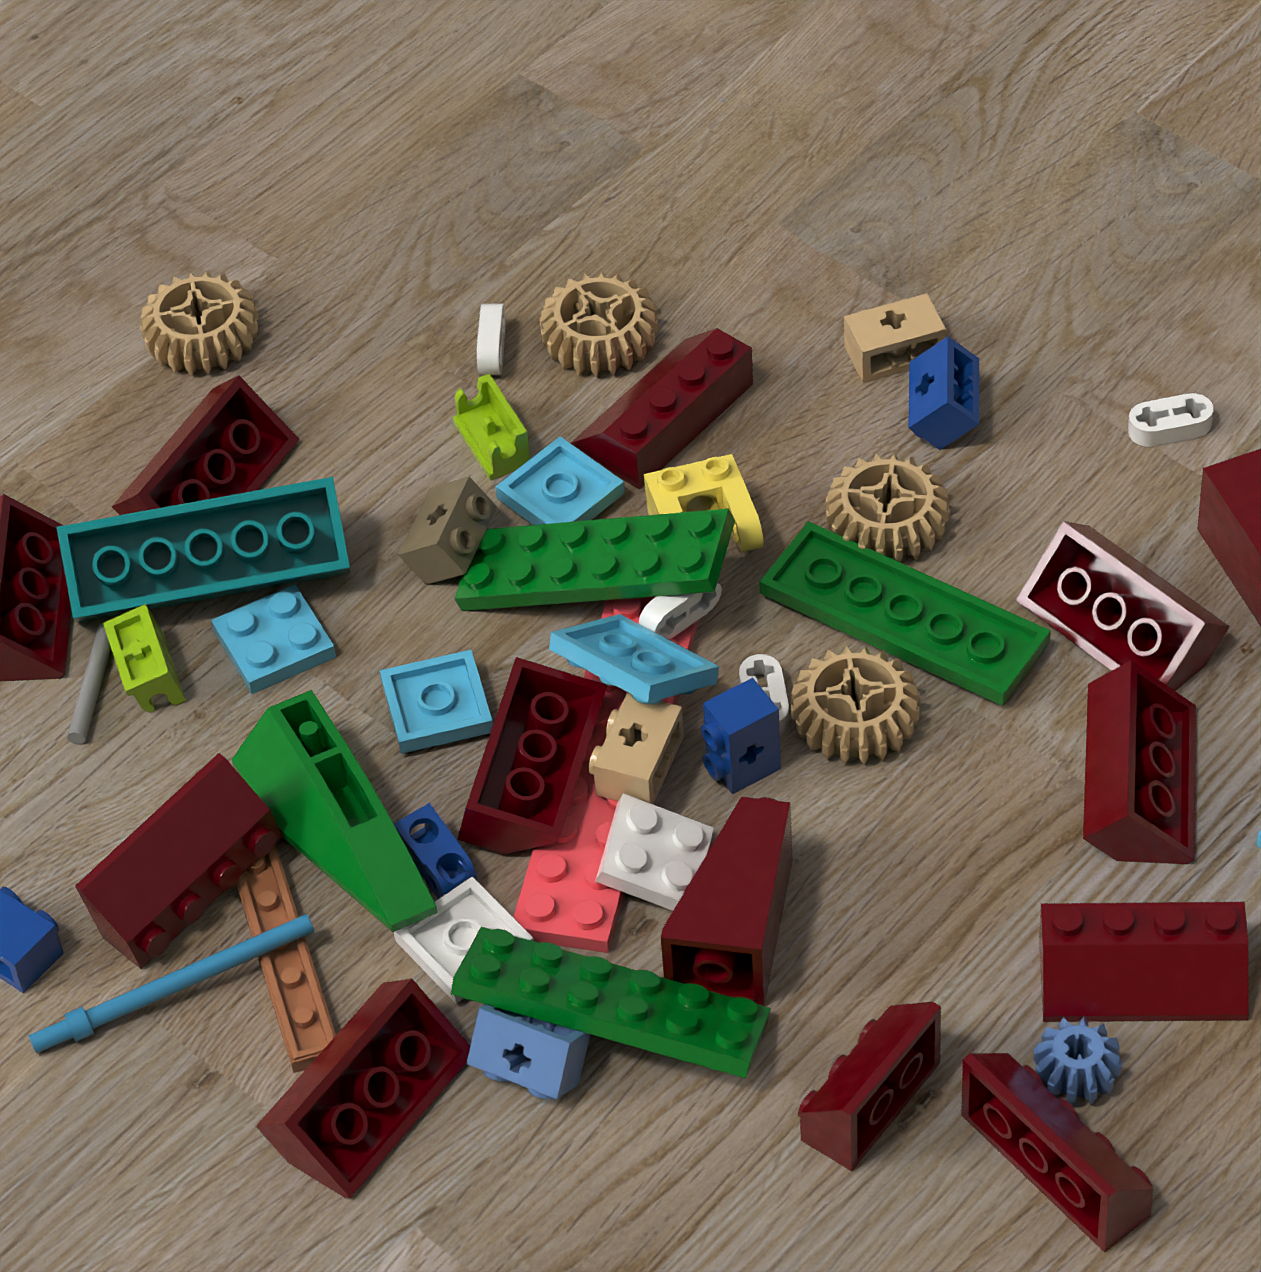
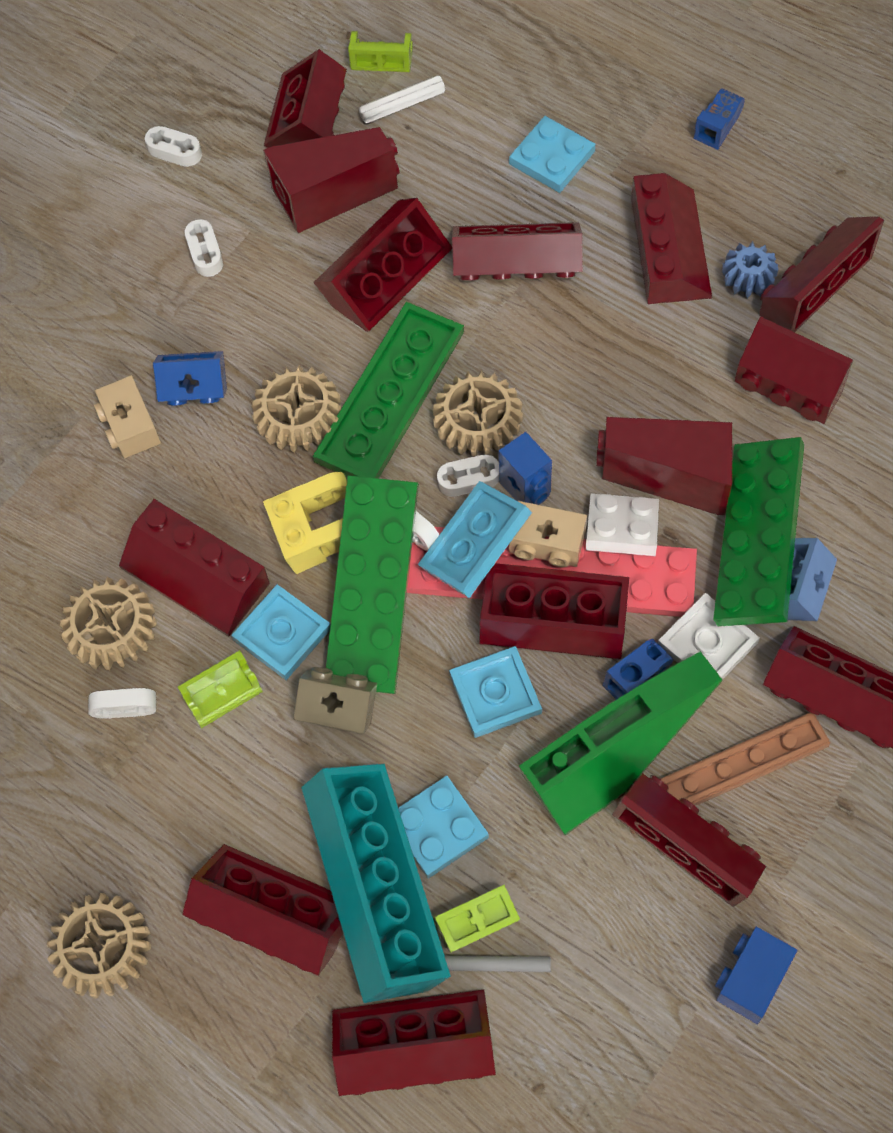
camera: 95 degrees left, 15 degrees up
(81, 1022) = (820, 901): dark azure bar -> none

